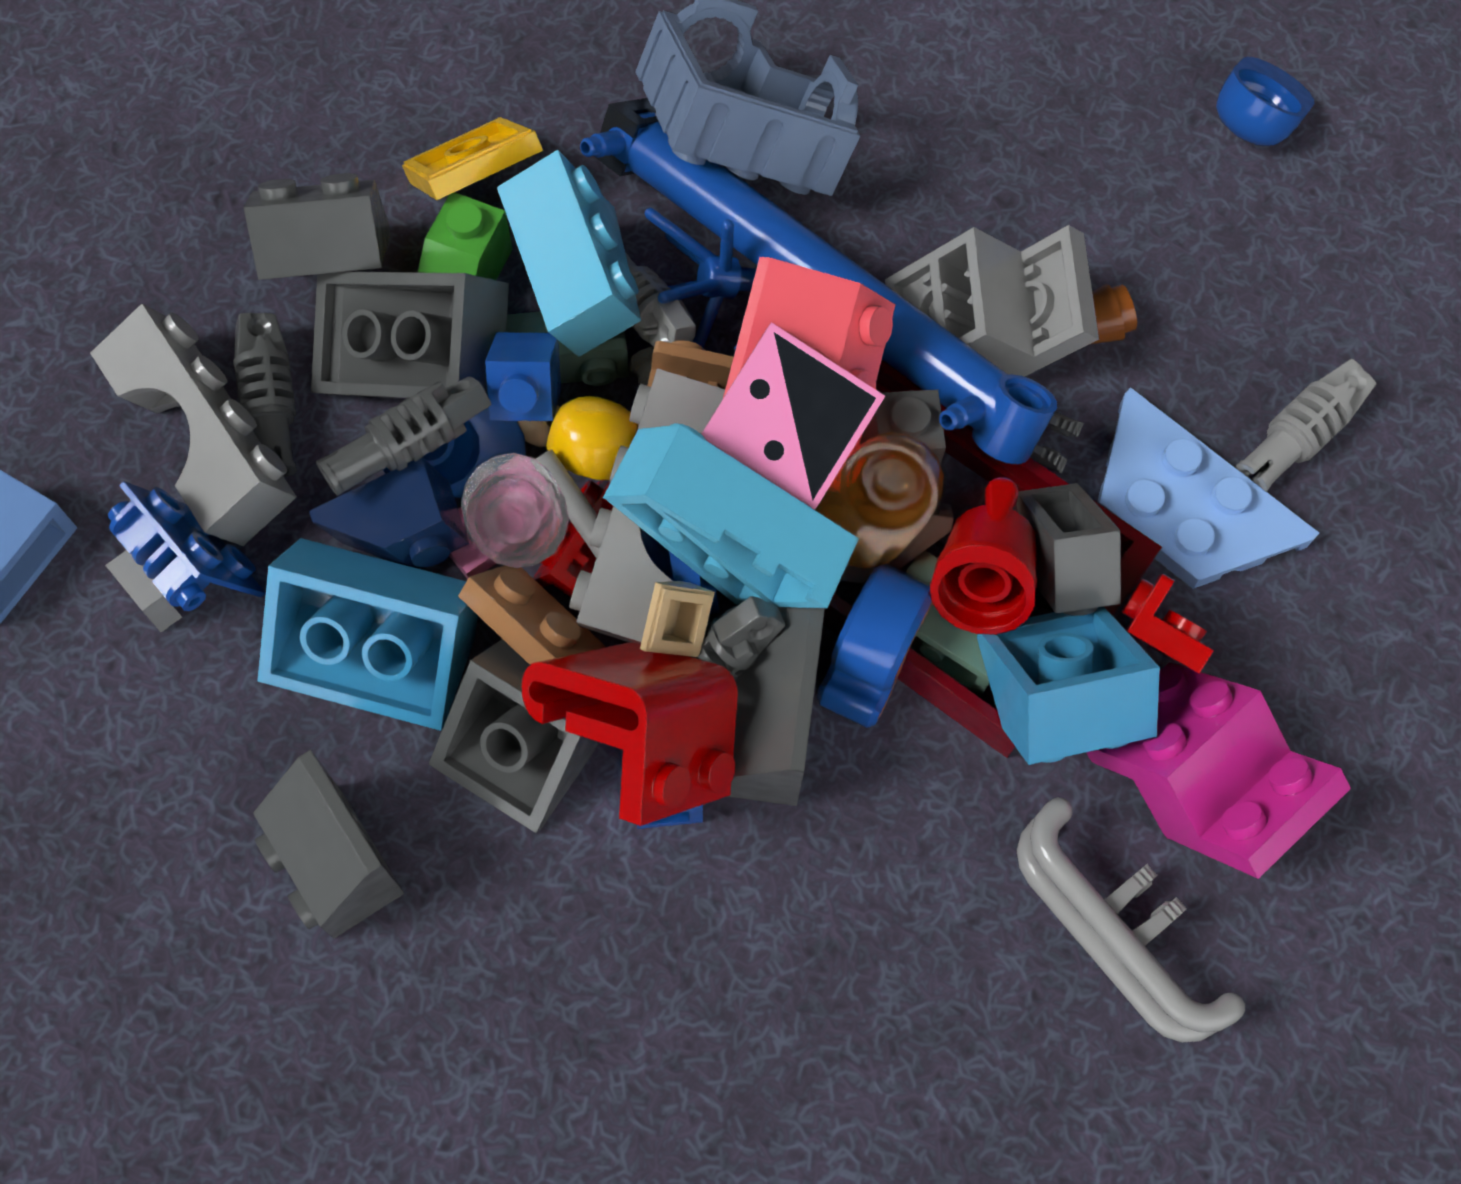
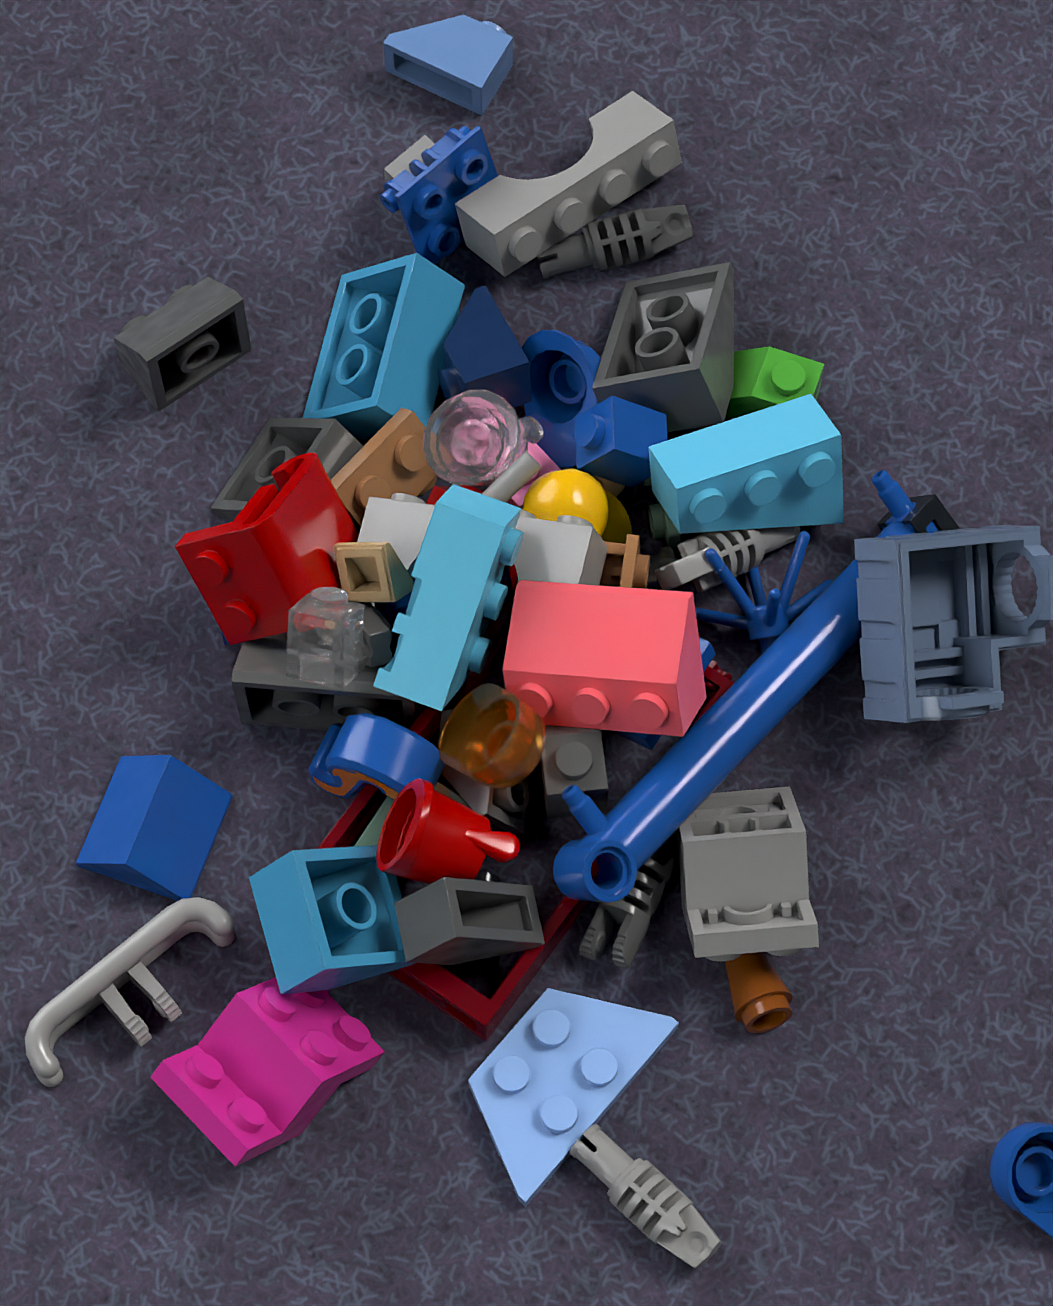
camera: 90 degrees right, 0 degrees up
(316, 227) = (766, 256): dark grey slope -> none
(405, 433) = (547, 344): dark grey hinge -> none
(471, 157) = (878, 383): yellow tile -> none
(750, 653) = (325, 638): none -> clear brick
(792, 416) = (544, 638): tile -> none
(925, 902) = (155, 825): none -> blue slope
(1174, 633) = (398, 1022): red bracket -> none

